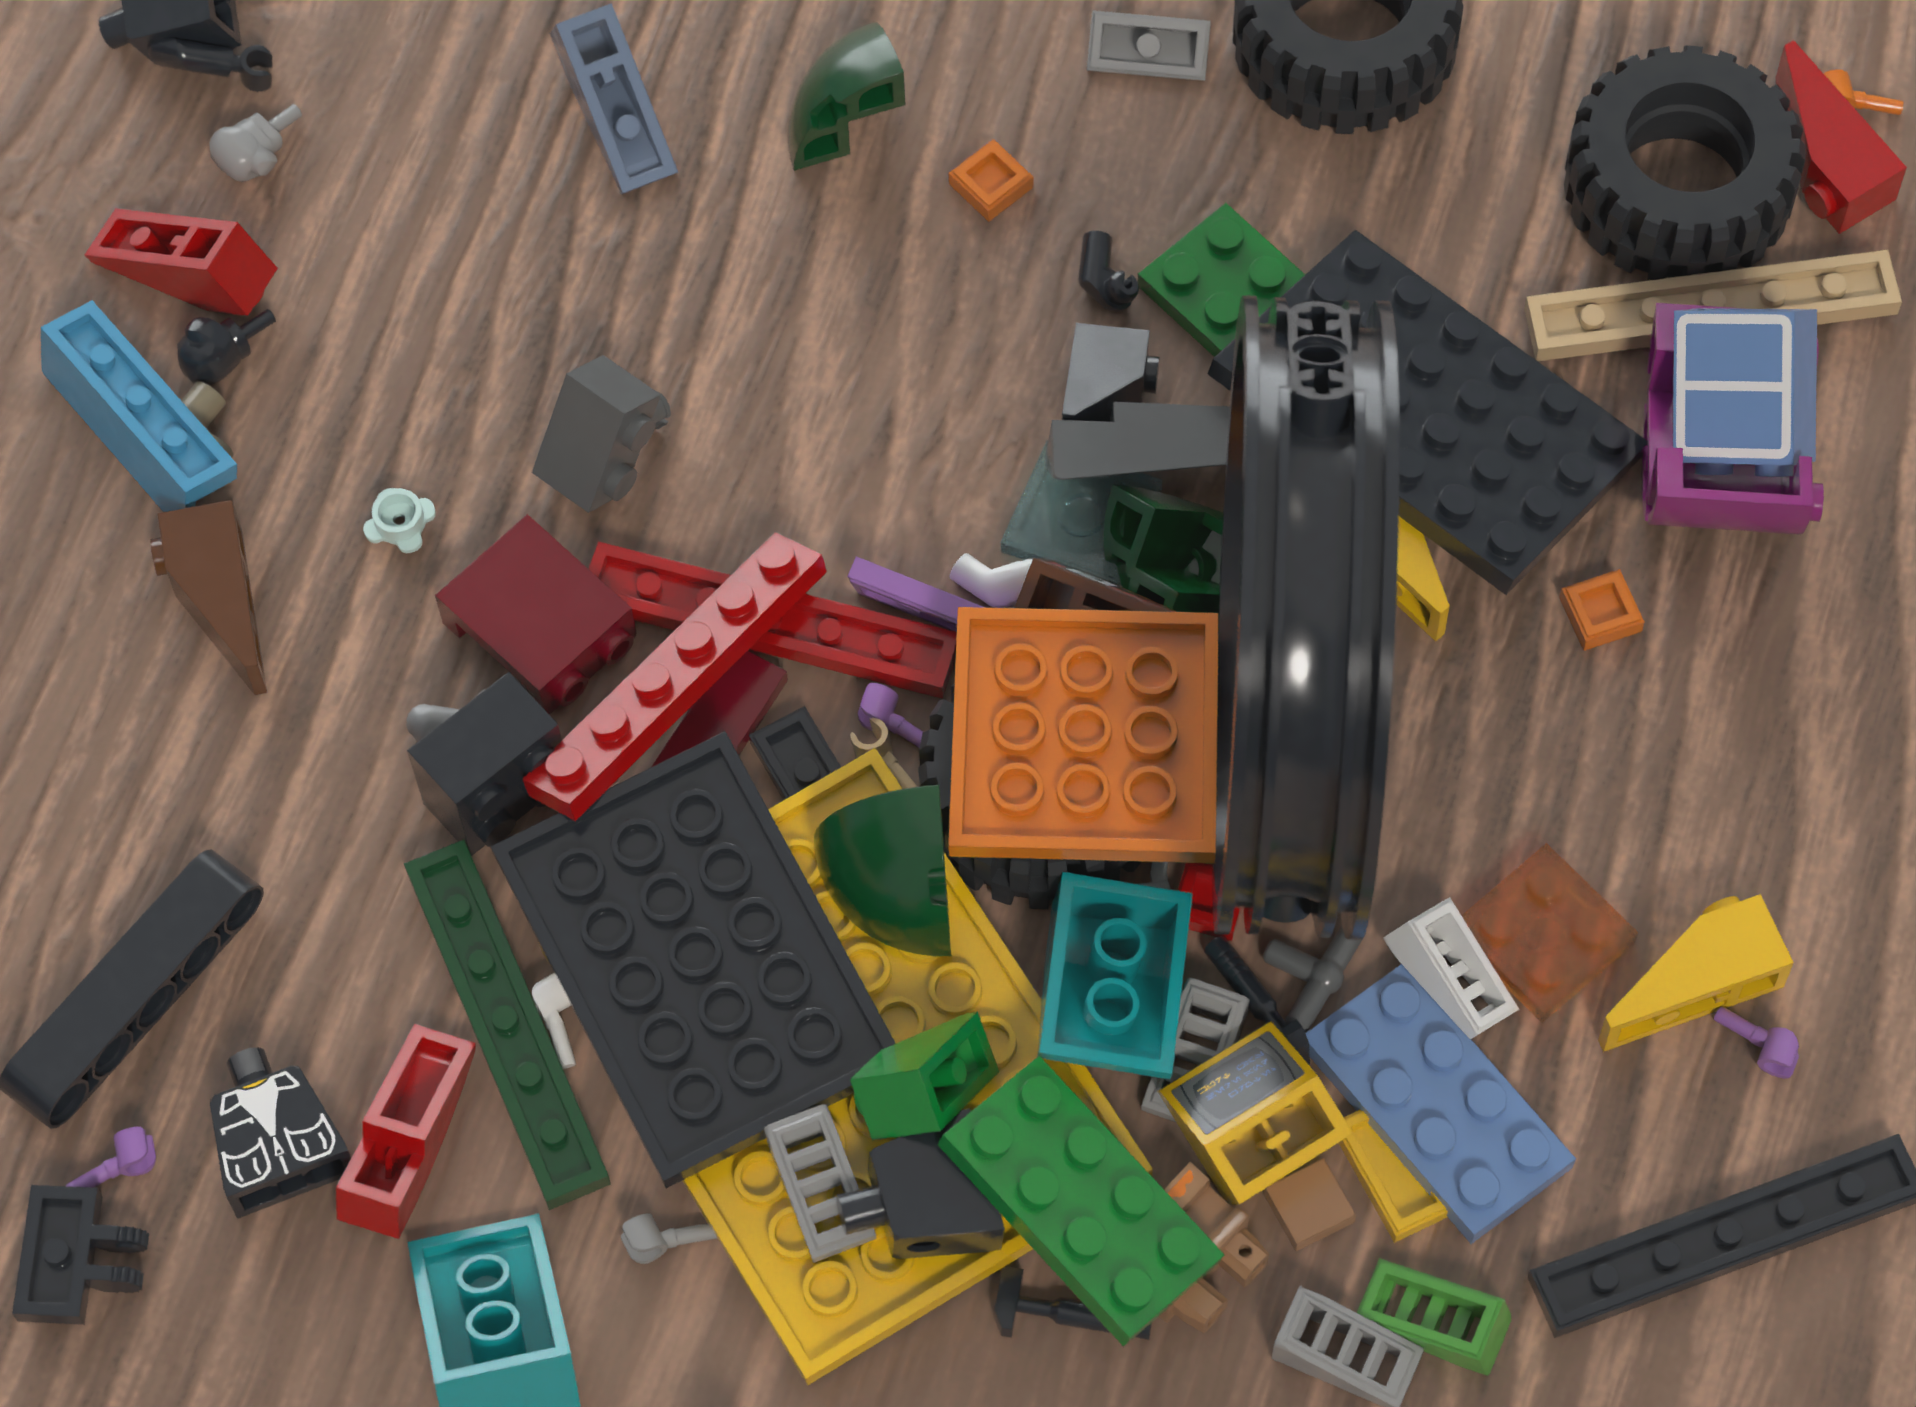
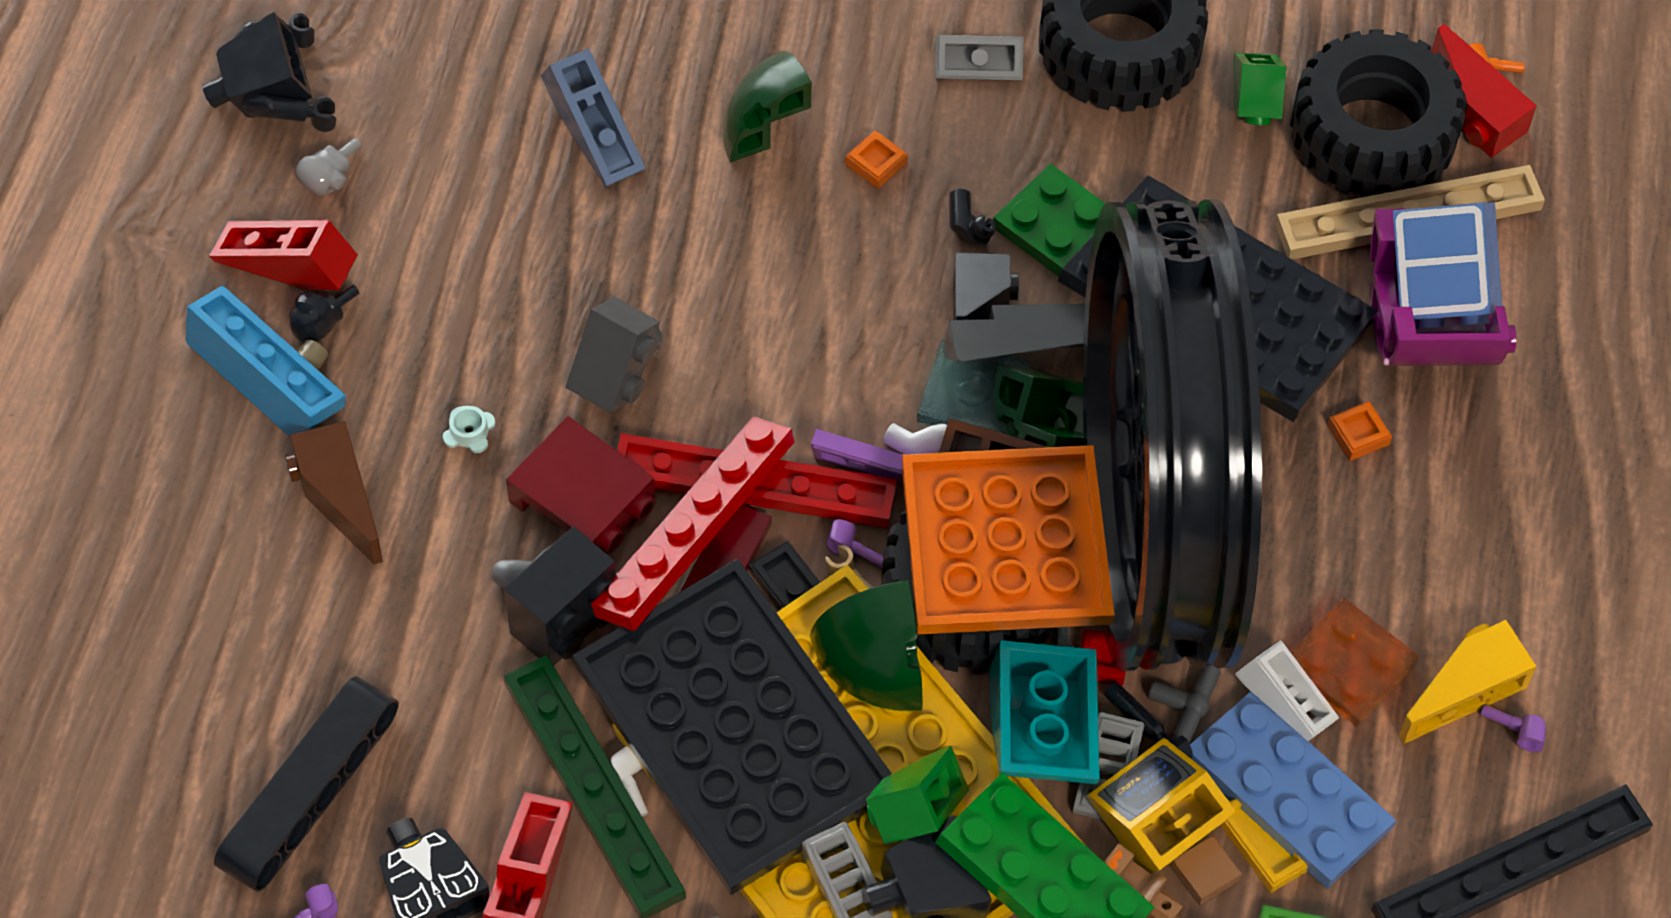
camera: 10 degrees left, 5 degrees down
(1526, 112) = (1258, 87): none -> green slope

